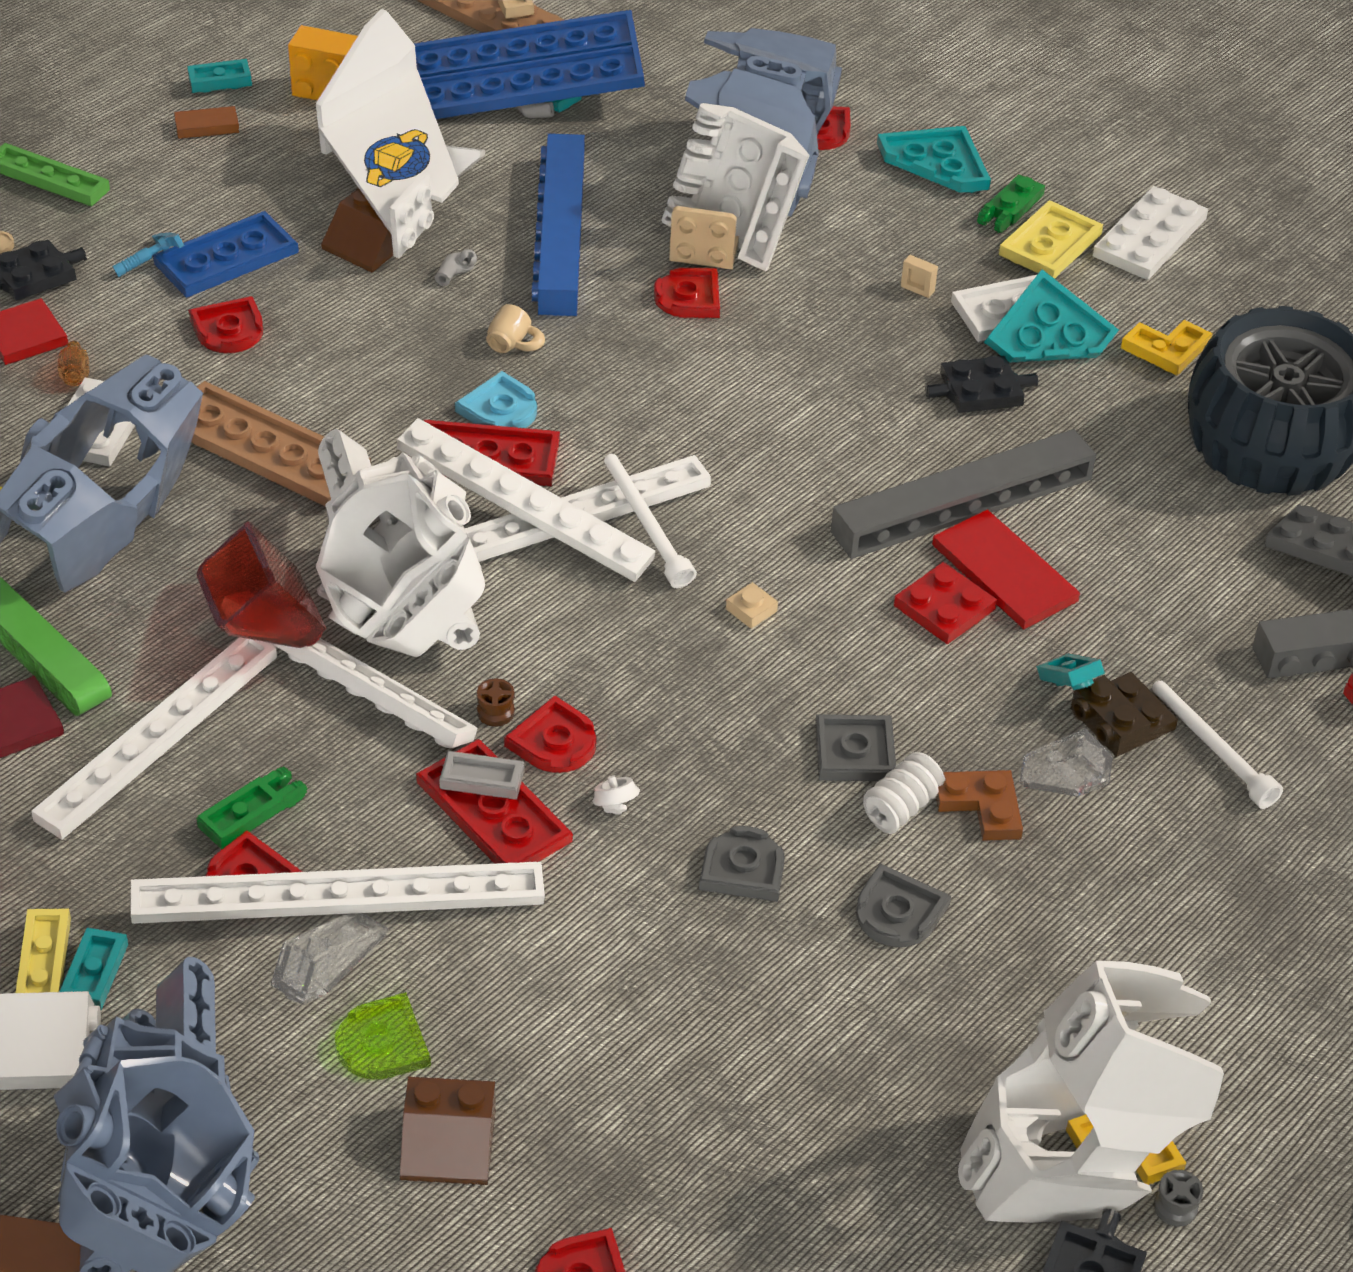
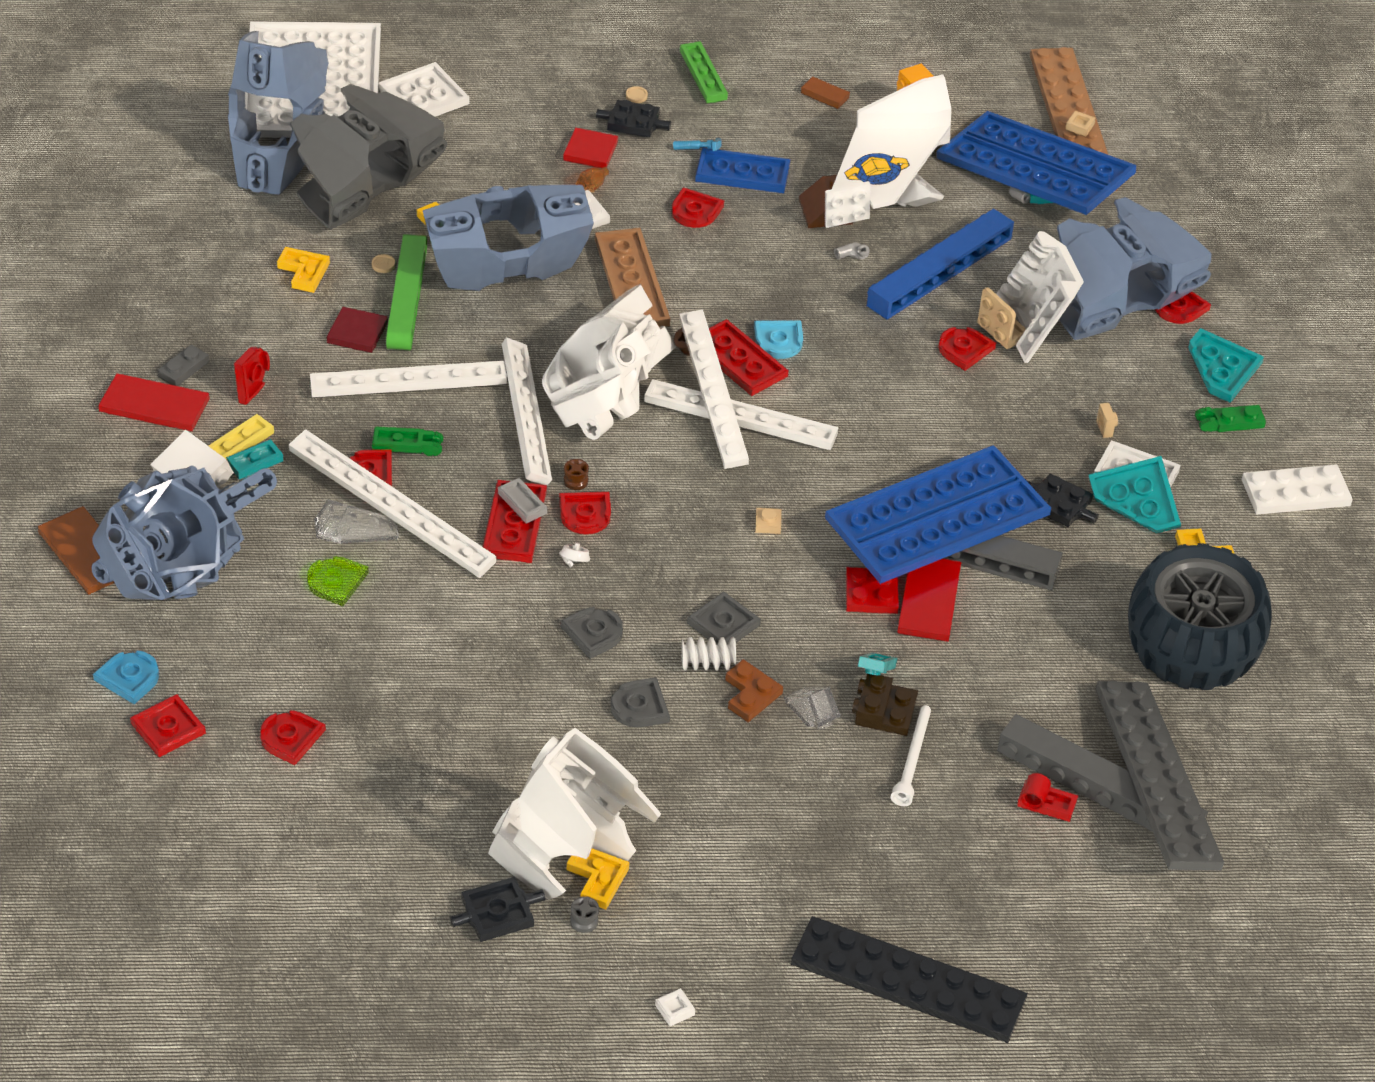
camera: 45 degrees right, 0 degrees up
(219, 76) = (864, 70): teal plate -> none
(259, 592) = (521, 343): clear red windscreen -> none
(447, 1130) = (309, 632): slope -> none
(510, 328) = (833, 301): tan piece -> none
(678, 569) = (752, 476): white piece -> none
(924, 474) = (937, 513): none -> blue plate
(1050, 239) = (1221, 452): light yellow plate -> none

